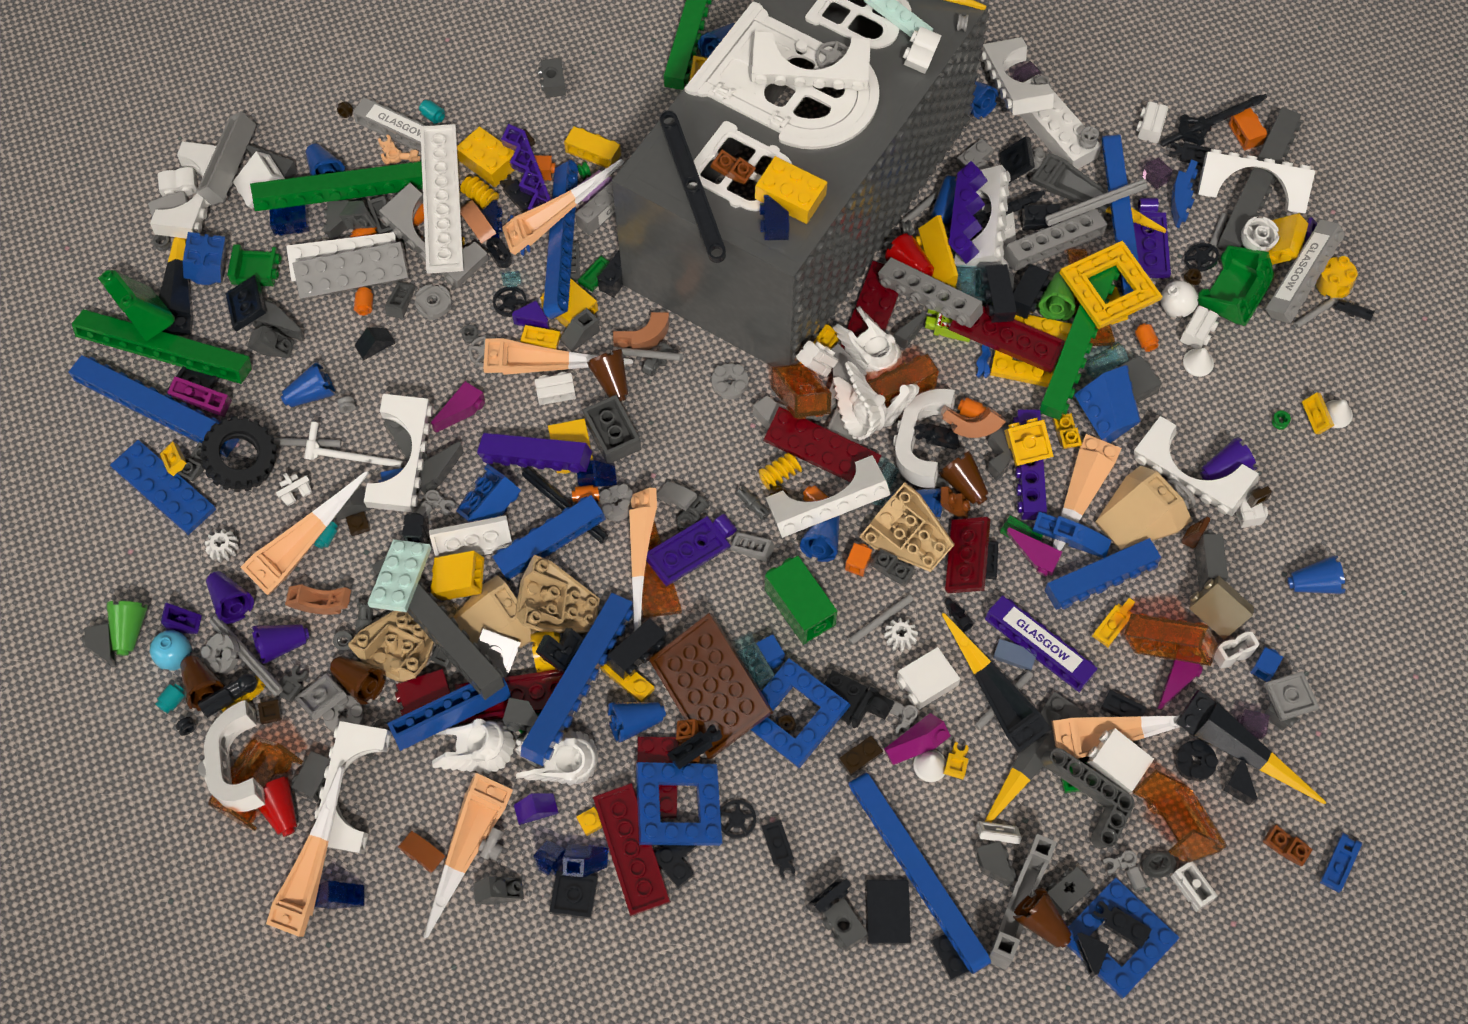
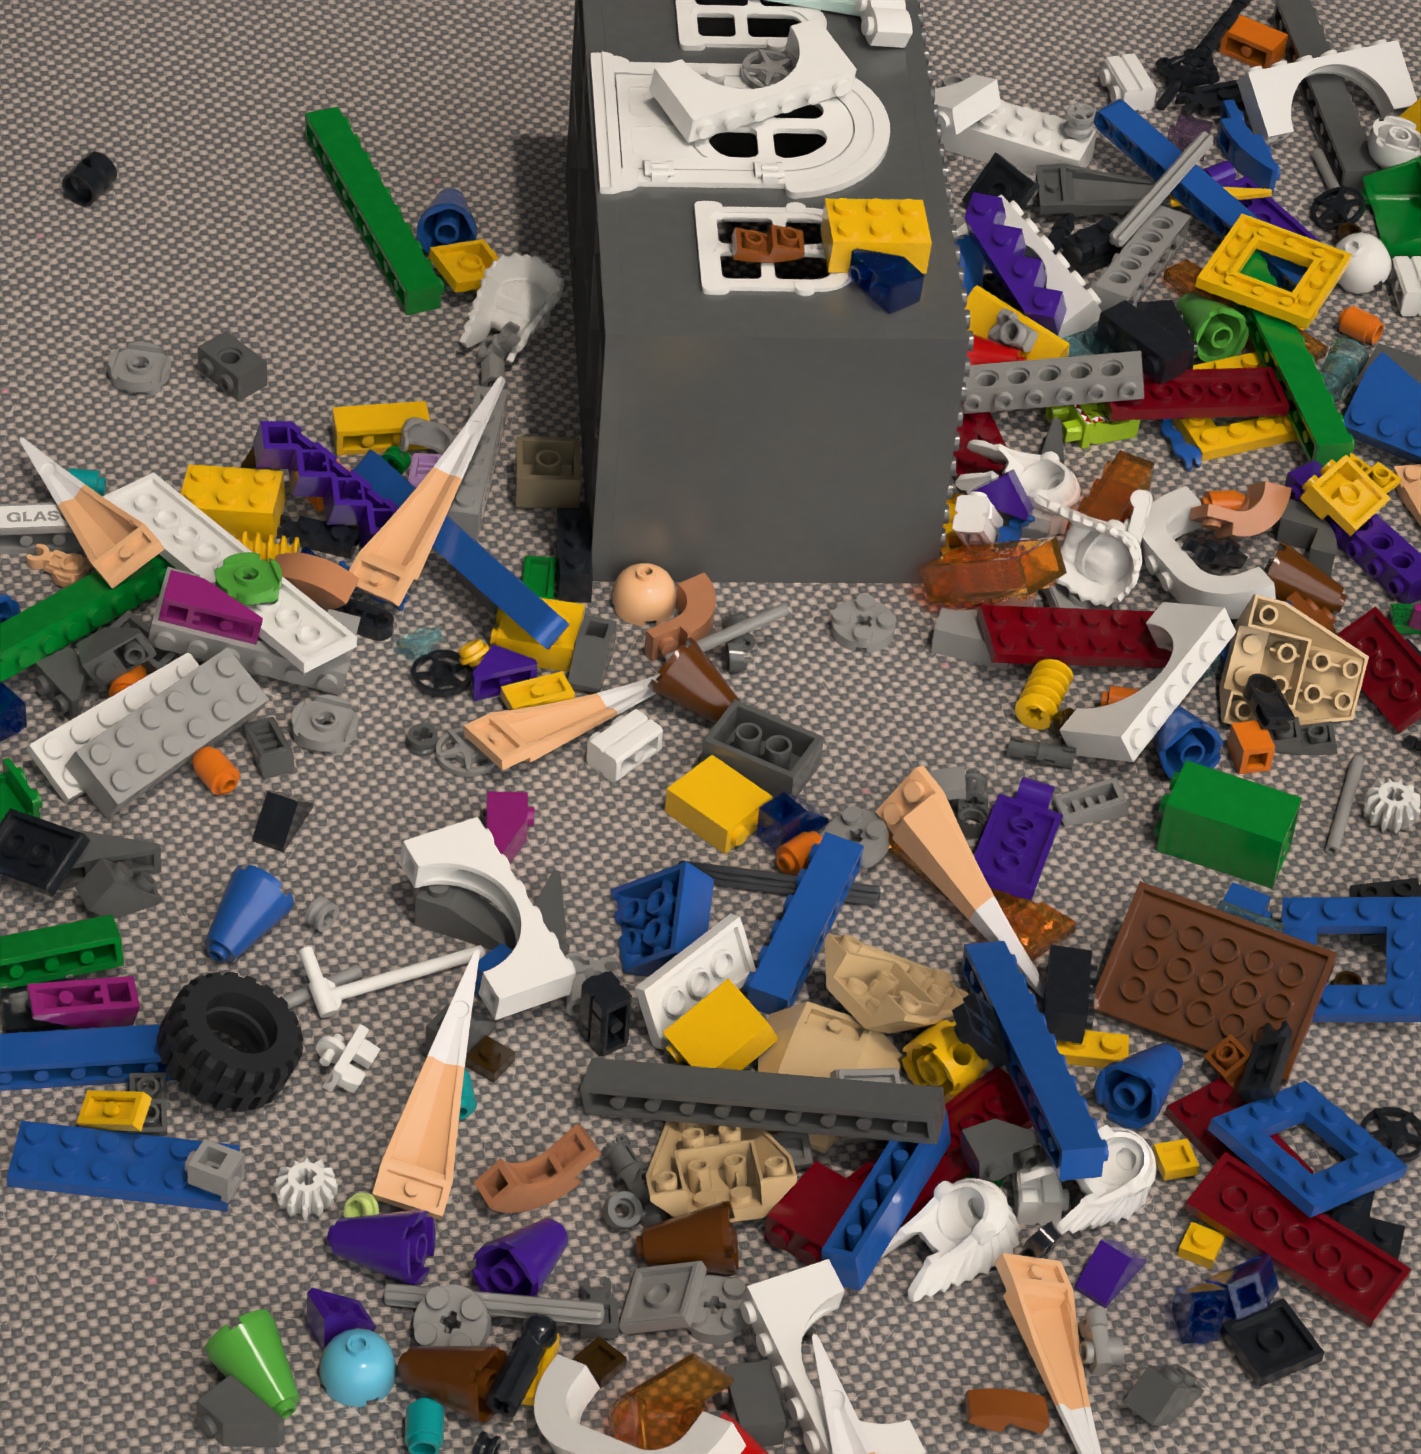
camera: 40 degrees left, 20 degrees down
(183, 516) = (216, 1169): none -> light grey brick
(234, 571) = (361, 1205): none -> yellowish green plate
(399, 575) = (644, 1069): light aqua plate -> none
(400, 209) = (206, 608): none -> magenta slope
(406, 148) = (109, 536): none -> light nougat plate
(438, 218) = (263, 583): none -> bright green plate
(506, 776) = (1043, 1241): none -> black beam
(514, 65) = (126, 374): none -> light grey plate
(525, 299) = (473, 652): none -> yellow plate
(534, 452) = (685, 825): dark purple brick -> none
(604, 161) = (425, 433): none -> light grey helmet
(616, 768) = (1175, 1159): none -> yellow plate
(637, 308) = (644, 594): none -> light nougat cylinder
(696, 197) = (752, 301): black beam -> none
(830, 372) = (1013, 530): none -> blue hair
(846, 348) = (1007, 495): none -> dark purple slope
(879, 545) = (1268, 706): none -> black piece
(934, 253) = (1012, 332): none -> light grey plate

